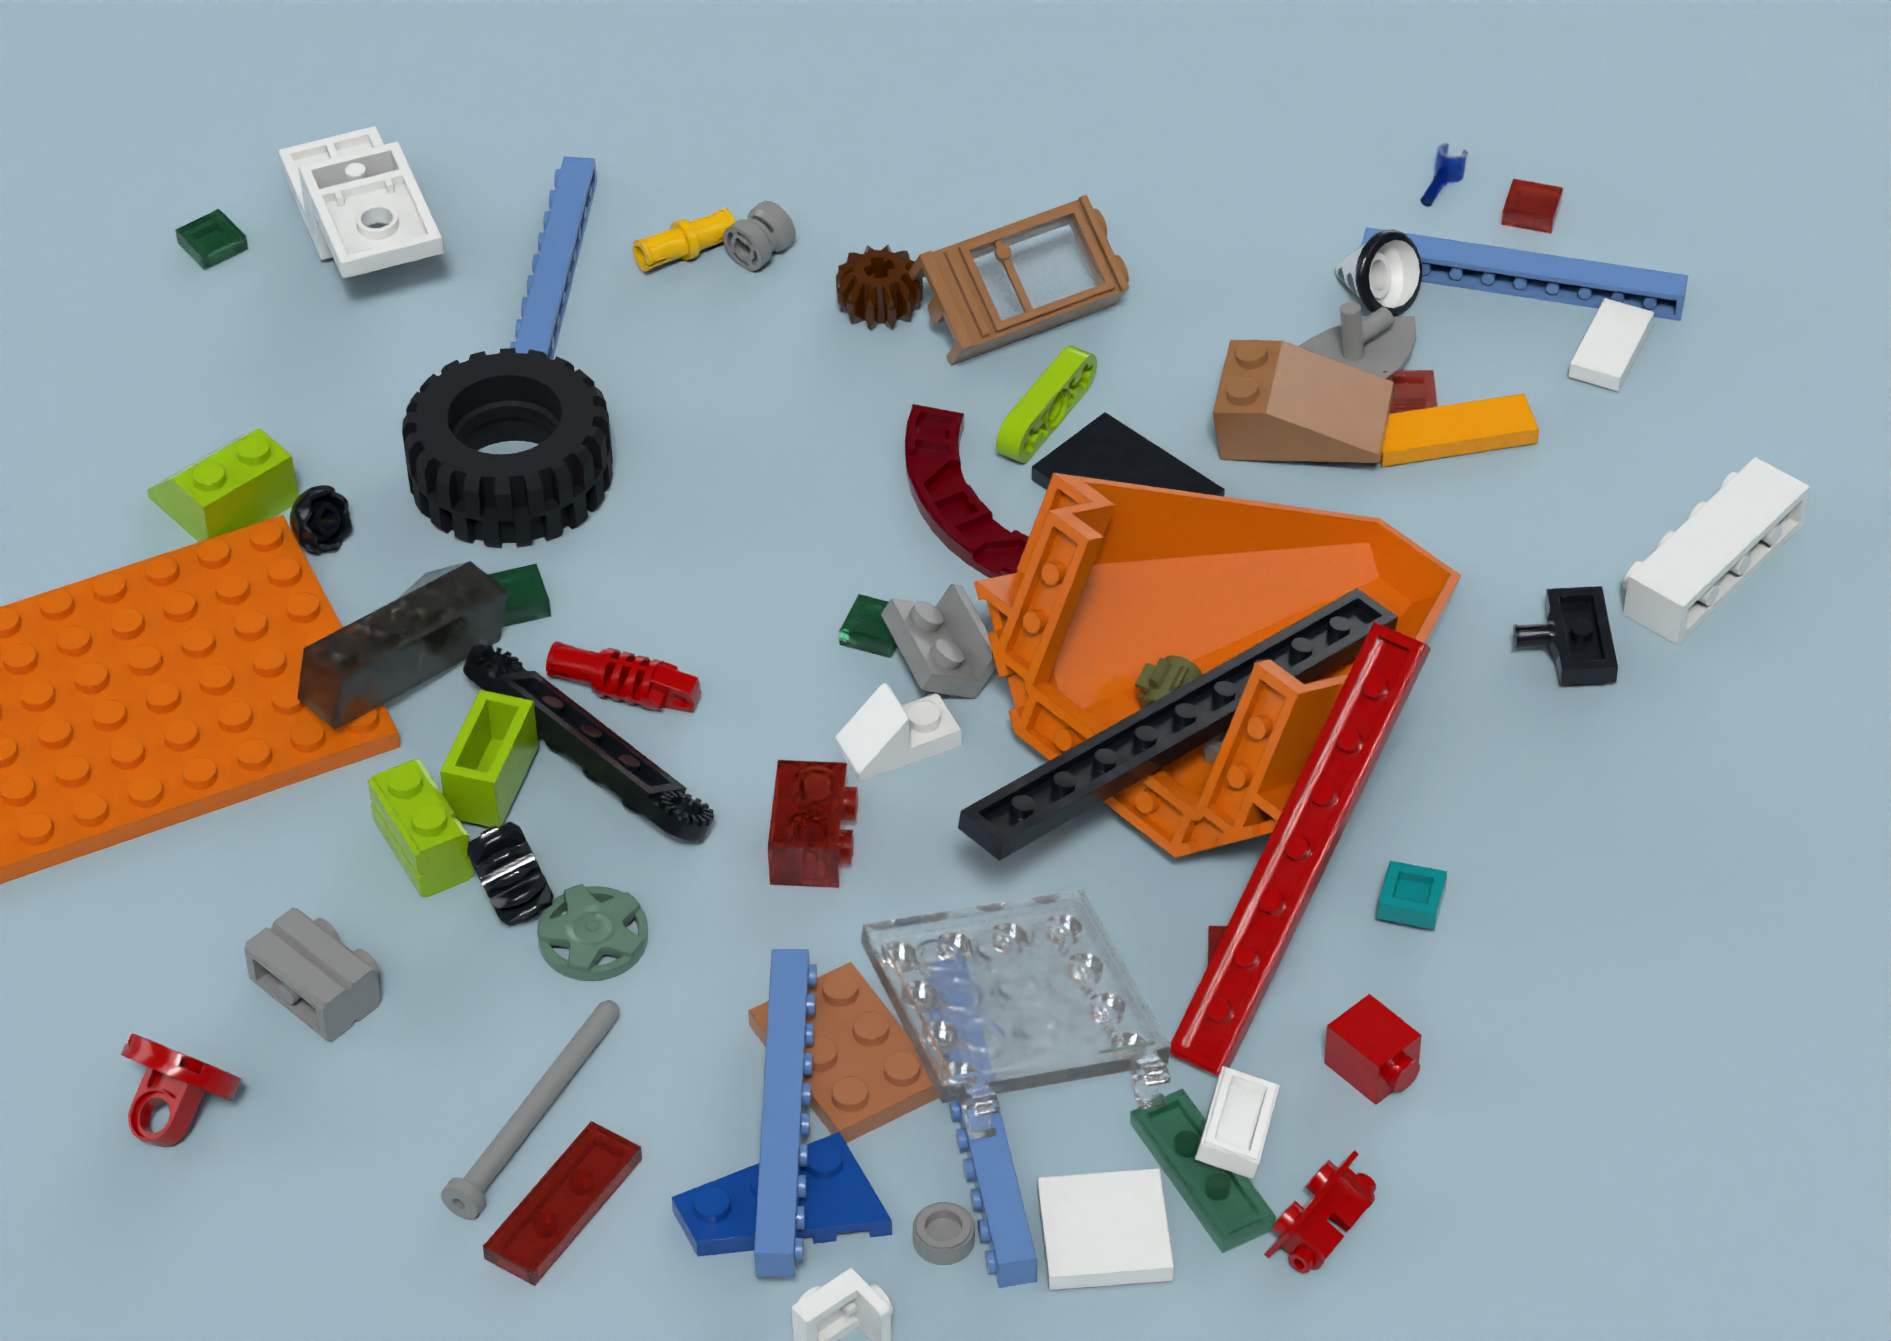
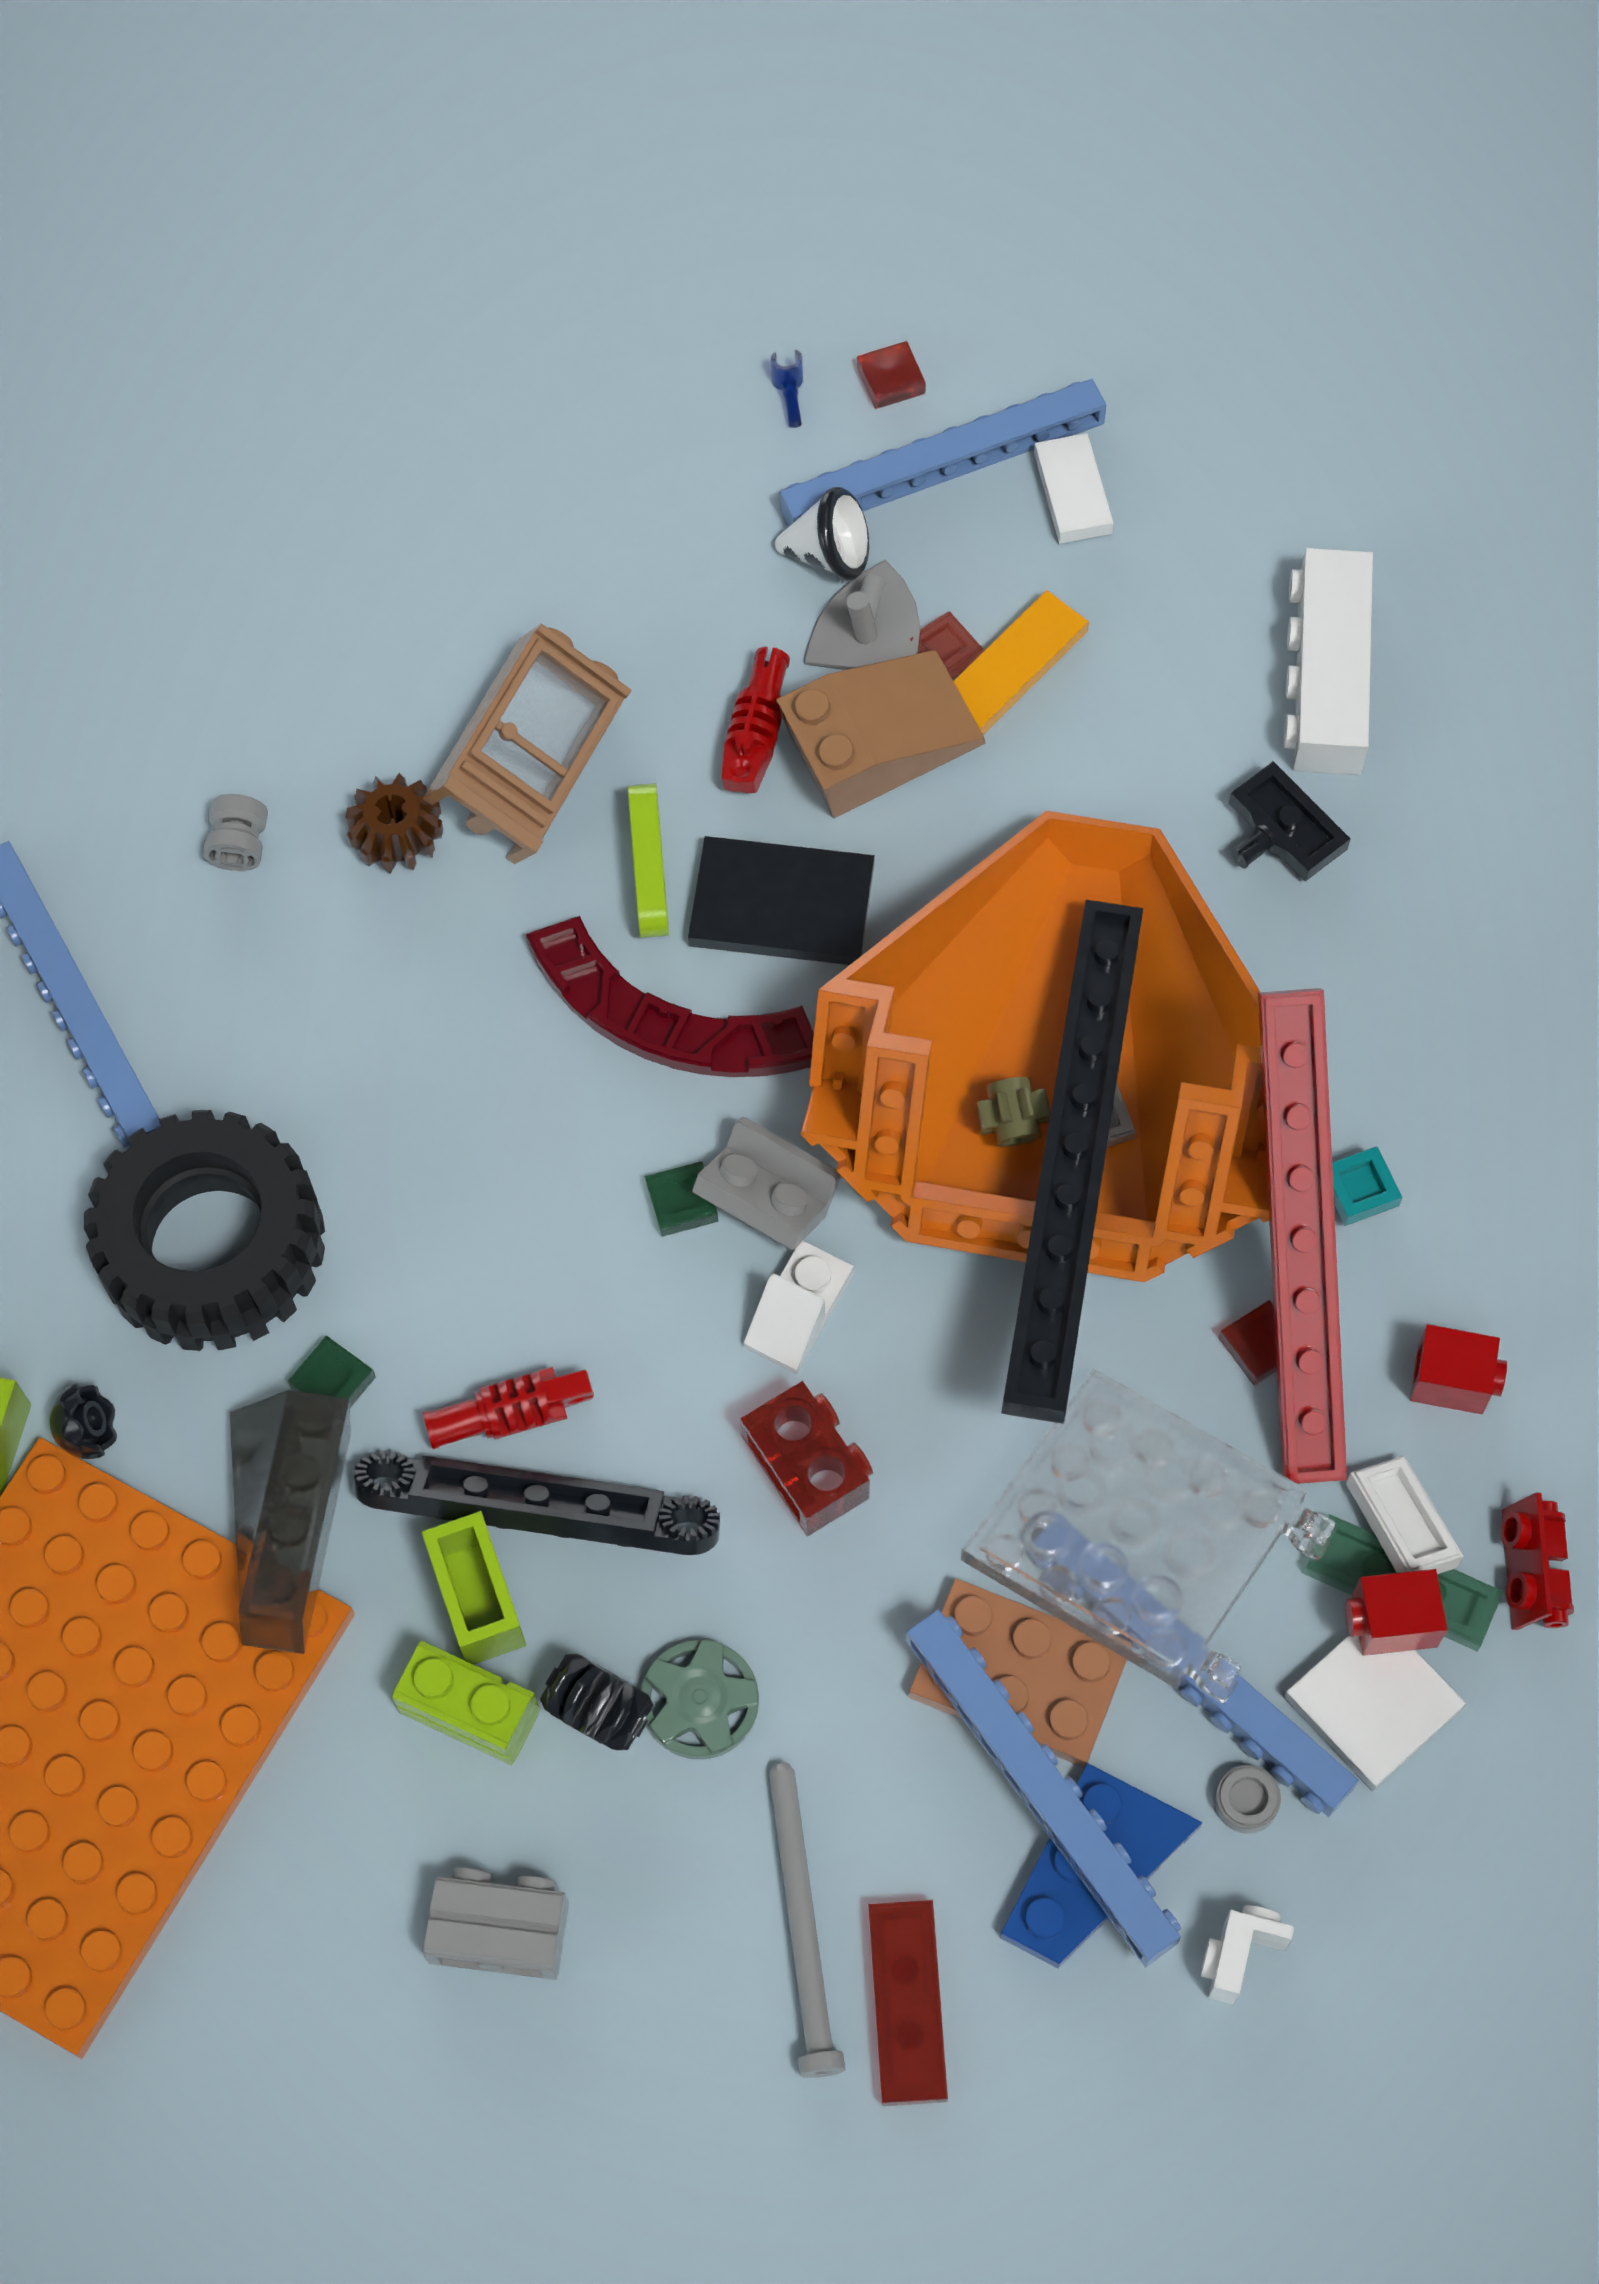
camera: 35 degrees left, 20 degrees up
(174, 1080) = (477, 2129): red tile -> none
(682, 240) = (165, 878): yellow pin -> none
(1166, 1163) = (1397, 1612): none -> red brick
(1201, 366) = (754, 724): none -> red hinge

